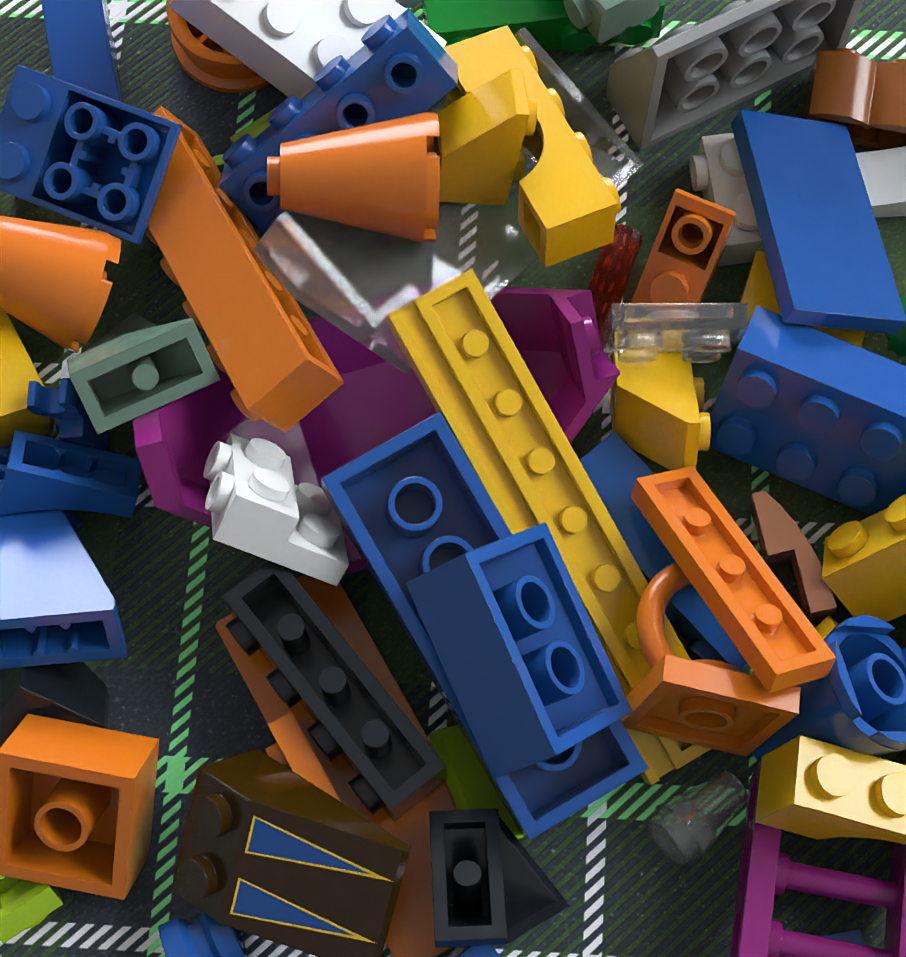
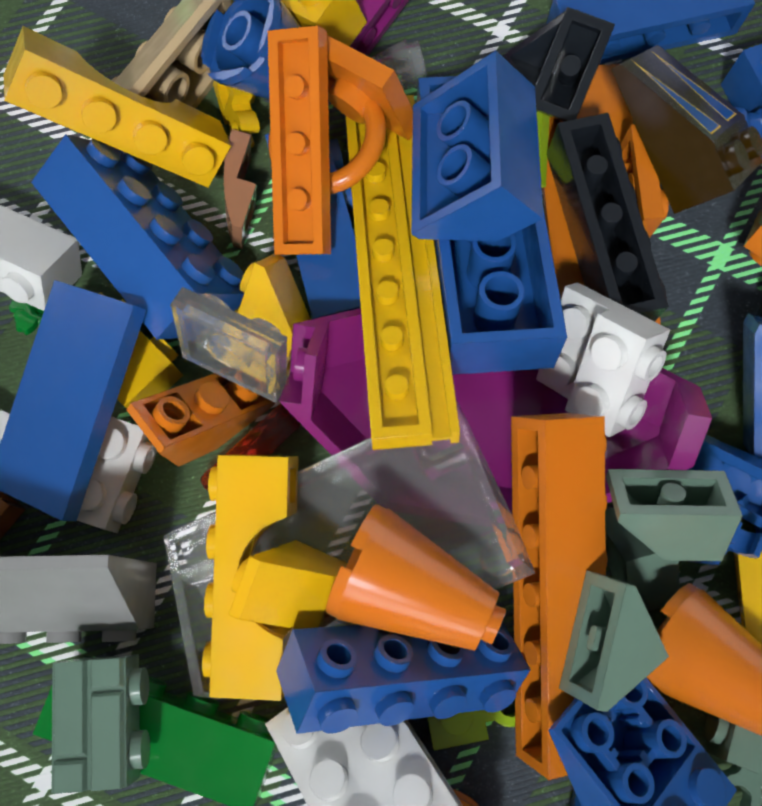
camera: 155 degrees left, 5 degrees up
(153, 215) = (610, 643): none -> sand green slope

